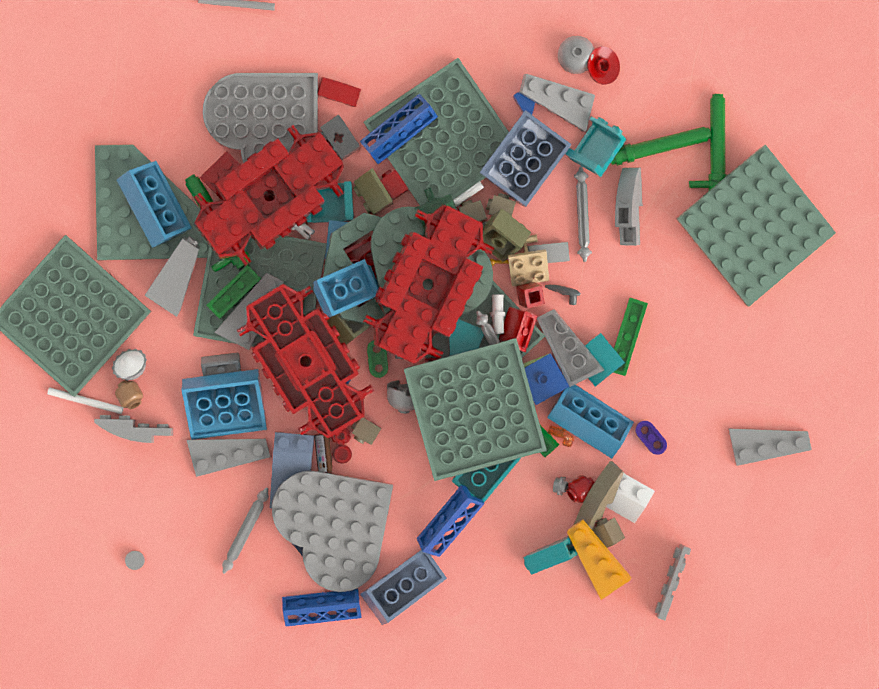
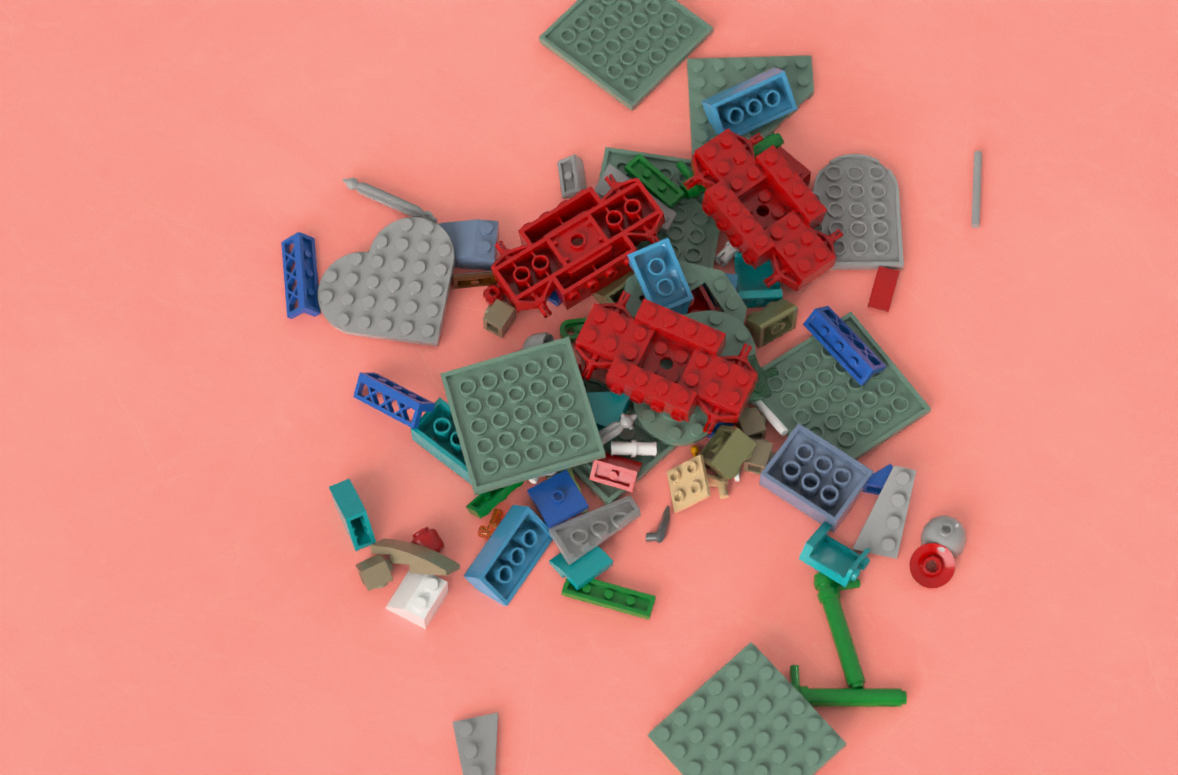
camera: 90 degrees right, 25 degrees down
(85, 400) = (534, 52): white bar -> none
(125, 428) = (502, 91): light grey slope -> none
(129, 364) = (572, 87): white piece -> none
(129, 394) = (540, 88): medium nougat head -> none
(134, 560) = (360, 97): light grey tile -> none
(174, 278) = (668, 126): light grey slope -> none
(221, 454) = (474, 178): light grey wing -> none
(224, 404) = (529, 176): dark azure slope -> none
(337, 126) = (832, 288): dark grey brick -> none
(342, 454) = (473, 296): red plate -> none
(393, 184) = (779, 342): red brick -> none
(403, 586) = (320, 356): sand blue slope -> none
(530, 295) = (656, 484): red brick -> none
(555, 251) = (707, 513): light grey slope -> none
(560, 485) = (432, 520): light grey plate -> none
(582, 214) = (752, 546): light grey wheel -> none
(598, 561) = (338, 562): light orange wing -> none
(627, 206) = (772, 591): light grey slope -> none
(650, 437) = (487, 623): dark purple plate -> none
(662, 608) = (325, 648): light grey wing -> none

